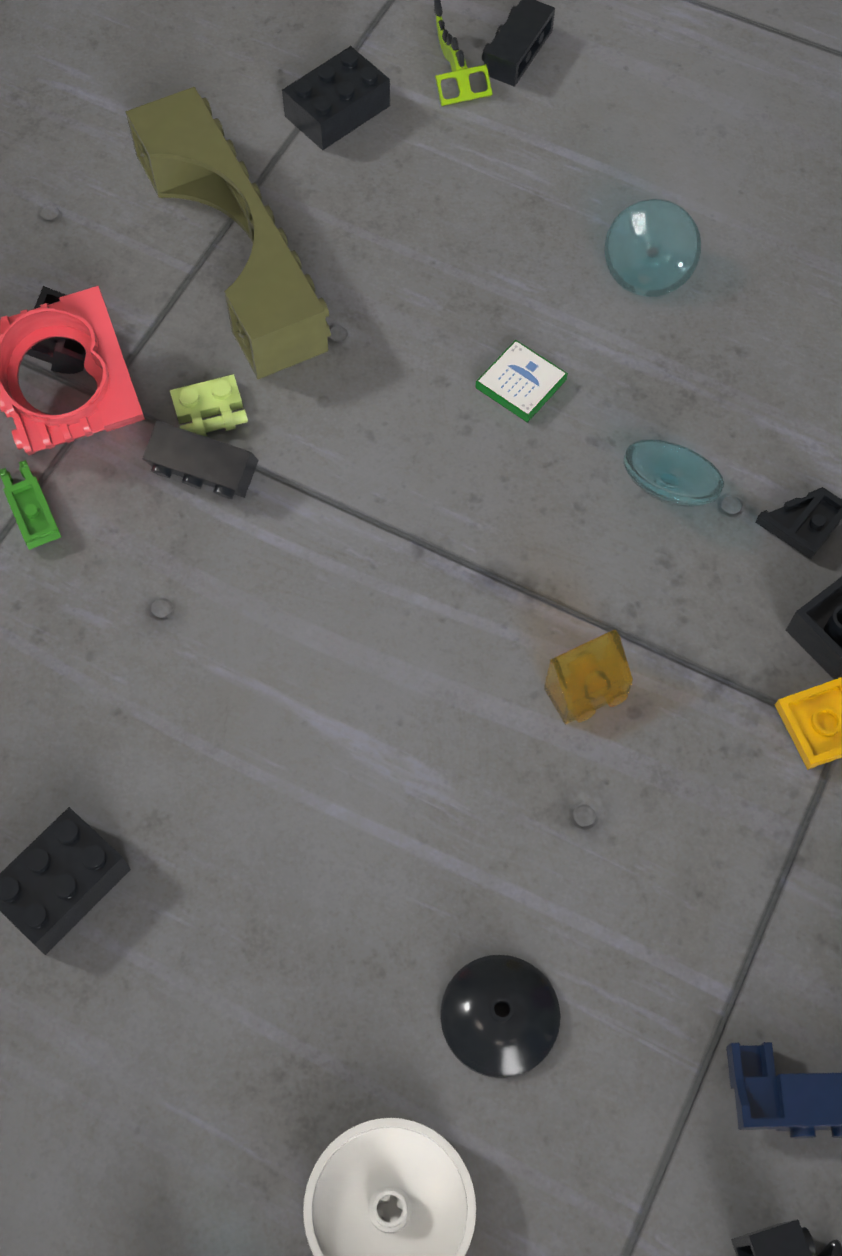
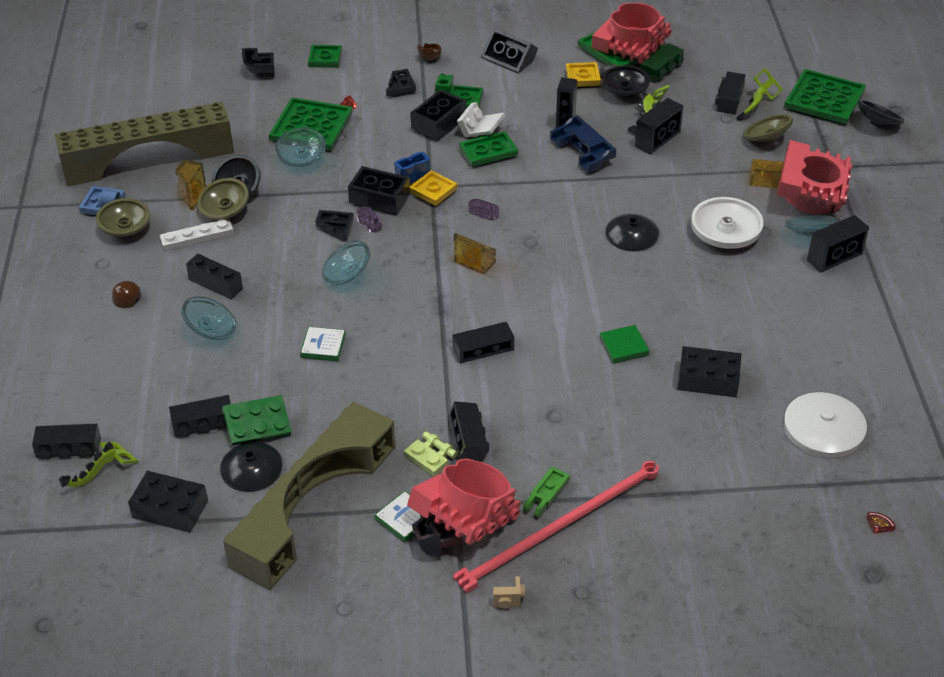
camera: 120 degrees left, 20 degrees down
(136, 325) = (398, 517): none -> white tile
(226, 800) = (624, 344): none -> green tile
(344, 210) = (251, 466): none -> black dish
(371, 582) = (483, 342): none -> black brick
(406, 228) = (256, 420): none -> green plate
(463, 182) = (198, 416): none -> black brick
(713, 772) = (483, 209): none -> clear purple beam
(756, 298) = (214, 276): none -> black brick
(787, 191) = (125, 294): none -> reddish brown hair
(792, 579) = (369, 219): none -> clear purple beam

